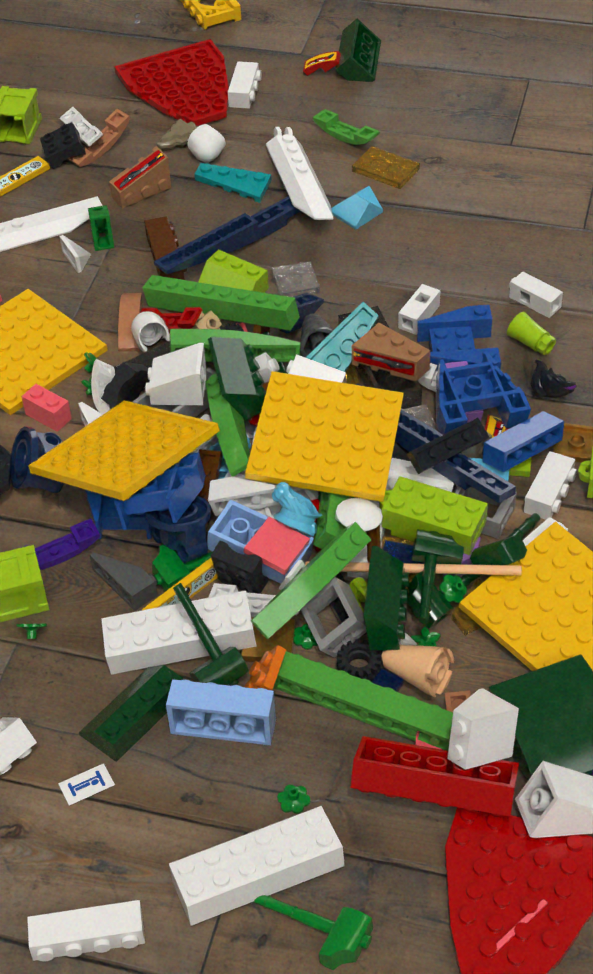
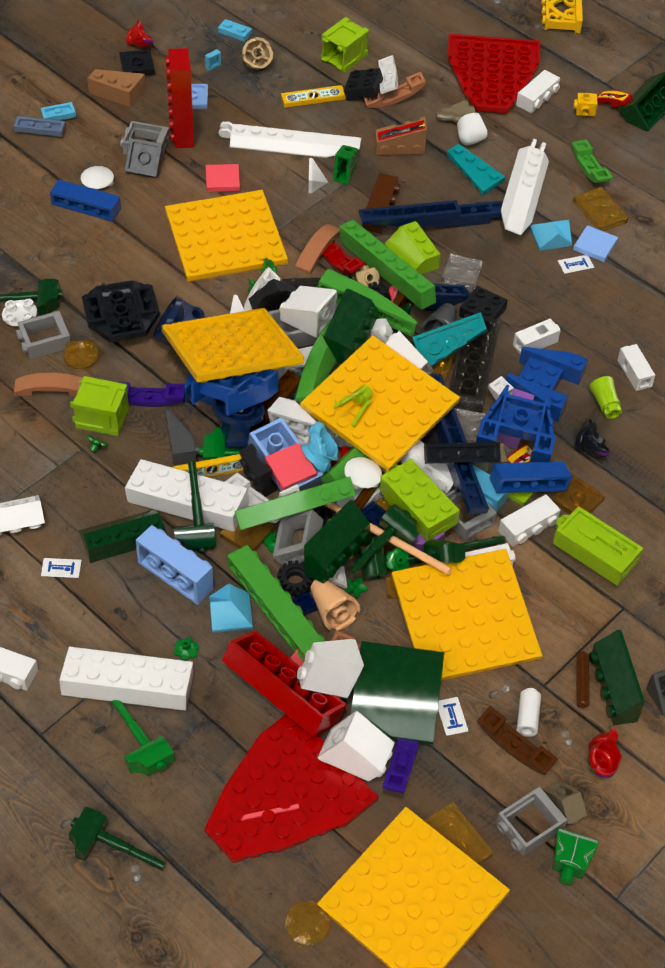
camera: 25 degrees right, 5 degrees up
(46, 407) = (212, 287): coral brick -> none
(148, 330) = (320, 260): white piece -> none
(266, 670) = (222, 551): orange plate -> none
(300, 77) = (585, 104): none -> yellow brick
(307, 435) = (361, 395): none -> lime plant
(312, 731) = (230, 609): none -> medium azure slope
(341, 300) = (483, 301): none -> black brick
(391, 352) = (477, 361): medium nougat wedge -> none
(400, 226) = (576, 264): none -> white sticker
(405, 200) = (595, 243): none -> light blue tile

